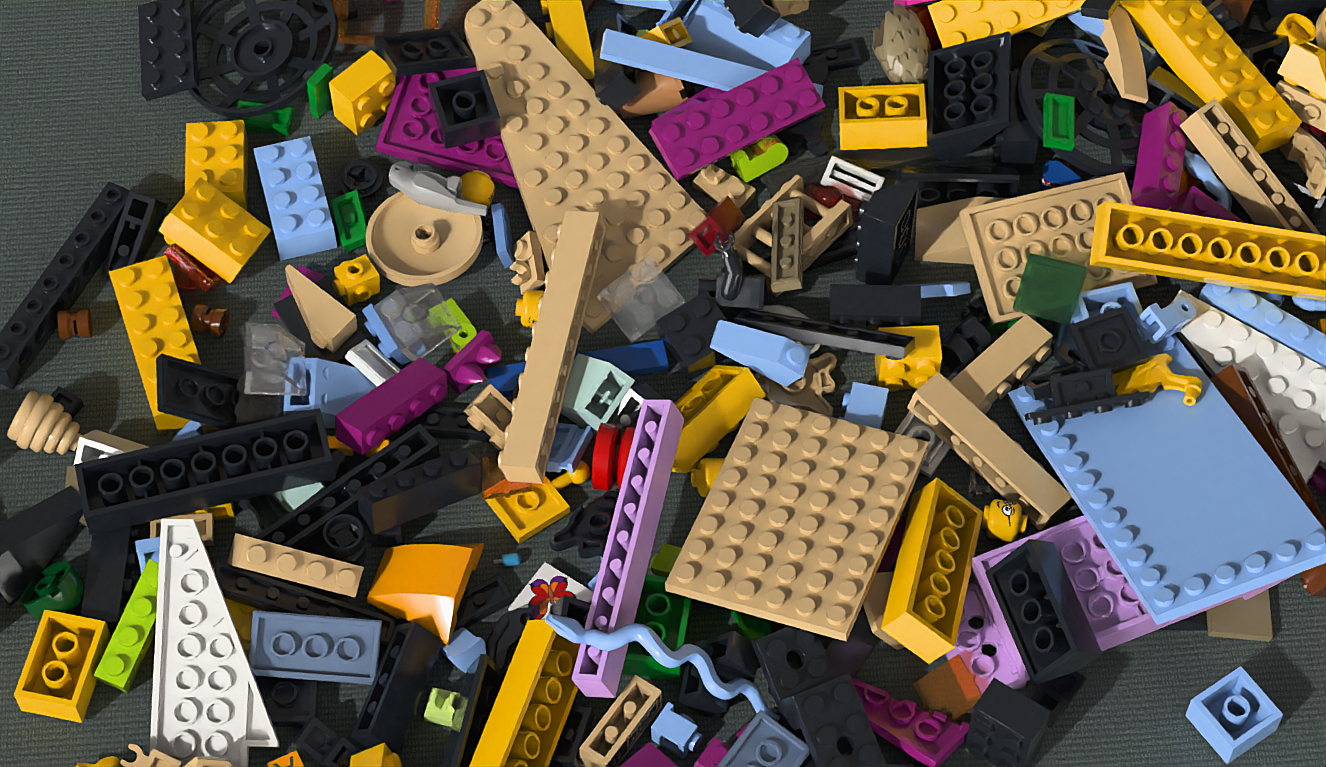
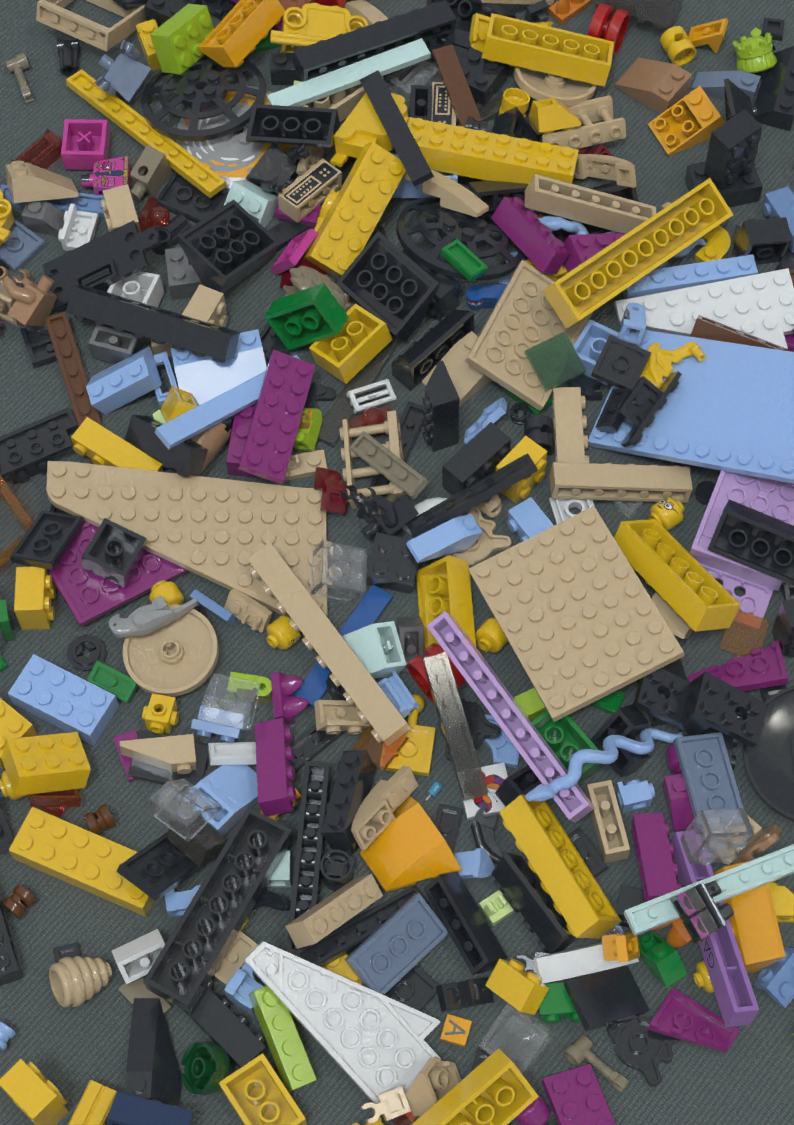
camera: 45 degrees left, 5 degrees up
(440, 521) = (378, 806): none -> tan slope
(576, 512) = (454, 726): none -> clear smoke plate
(849, 363) = (490, 505): none -> tan tile
(862, 55) = (306, 316): none -> green brick

